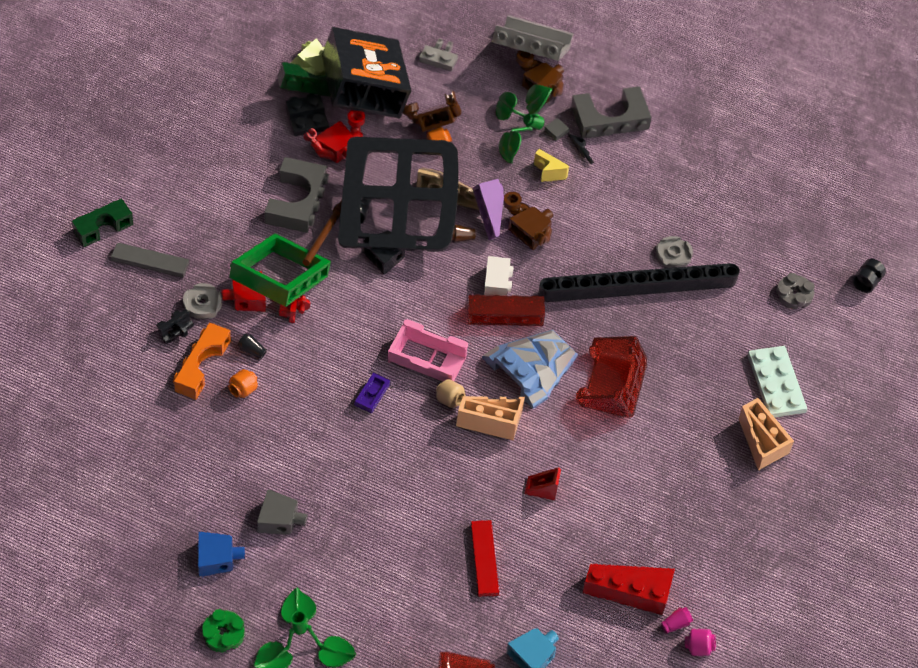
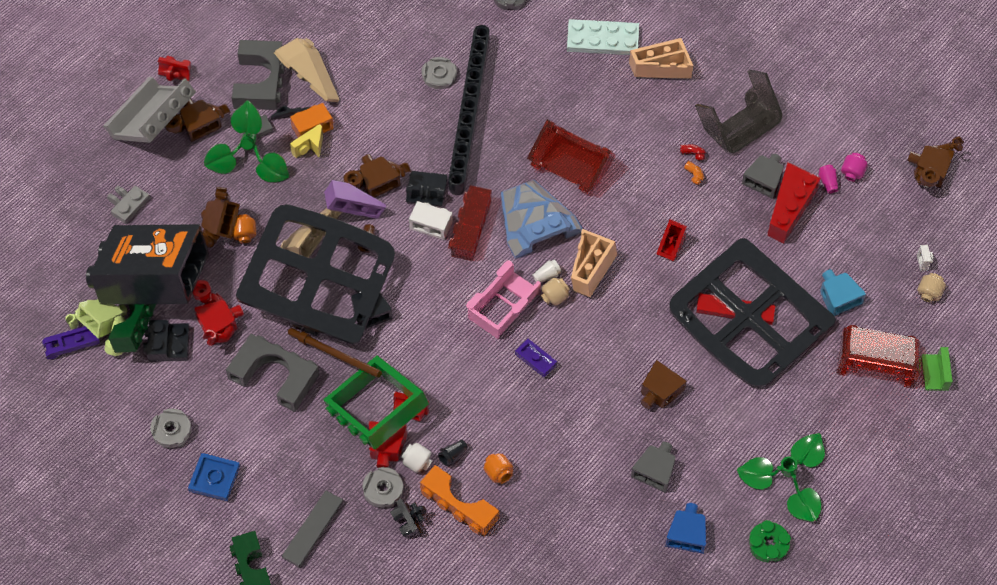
camera: 70 degrees left, 5 degrees up
(181, 178) = (214, 477): none -> blue plate
(221, 146) = (175, 438): none -> light grey plate
(238, 318) = (416, 457): none -> white head
(284, 49) = (69, 342): none -> dark purple plate
(370, 503) = (661, 386): none -> reddish brown torso
(472, 384) = (547, 271): none -> white cone
(479, 568) = (750, 314): none -> black window
(533, 267) = (426, 188): none -> black hinge
(579, 165) = (308, 119): none -> orange brick
(591, 51) = (174, 69): none -> red hips
(633, 141) = (306, 60): none -> tan wedge
(638, 495) = (696, 171): none -> orange arm
(659, 553) = (764, 175): none -> dark grey torso
(666, 488) = (693, 149): none -> red arm
(715, 529) = (748, 124): none -> clear smoke windscreen

